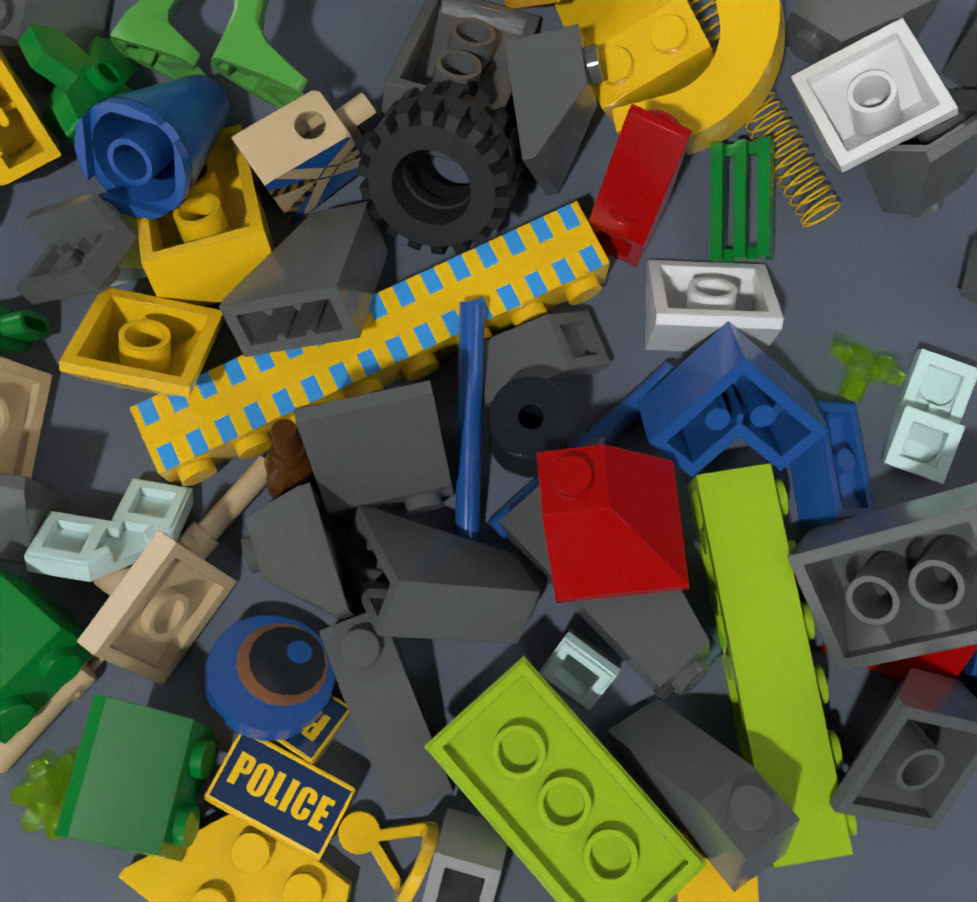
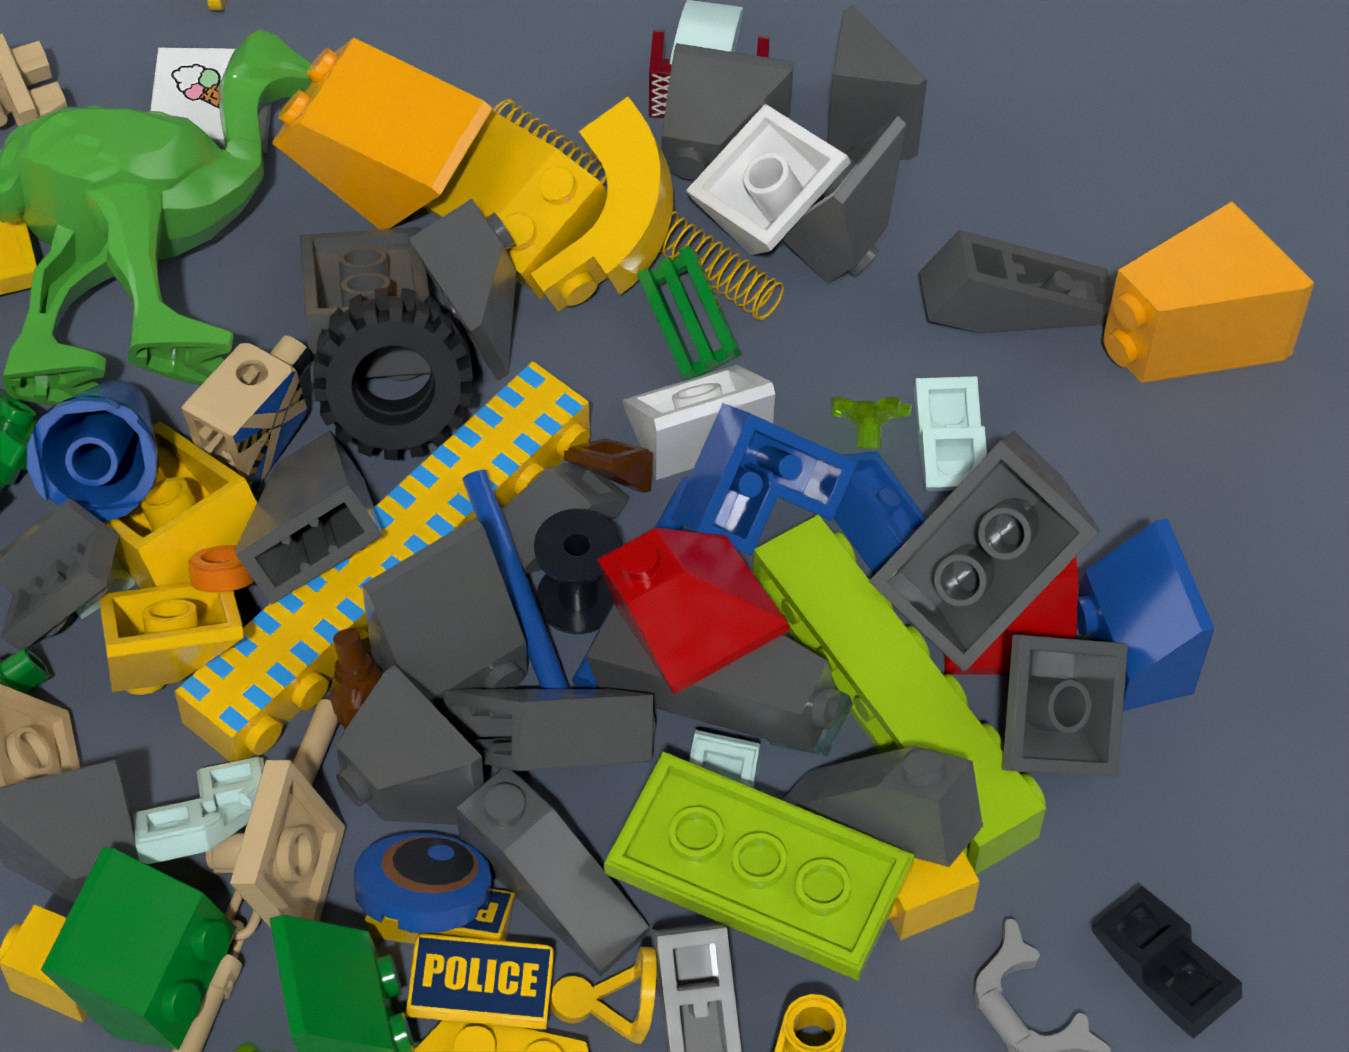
camera: 25 degrees left, 20 degrees down
(203, 303) = (218, 570): none -> orange tile
(611, 324) = (615, 461): none -> reddish brown slope
(638, 182) = (587, 318): red slope -> none

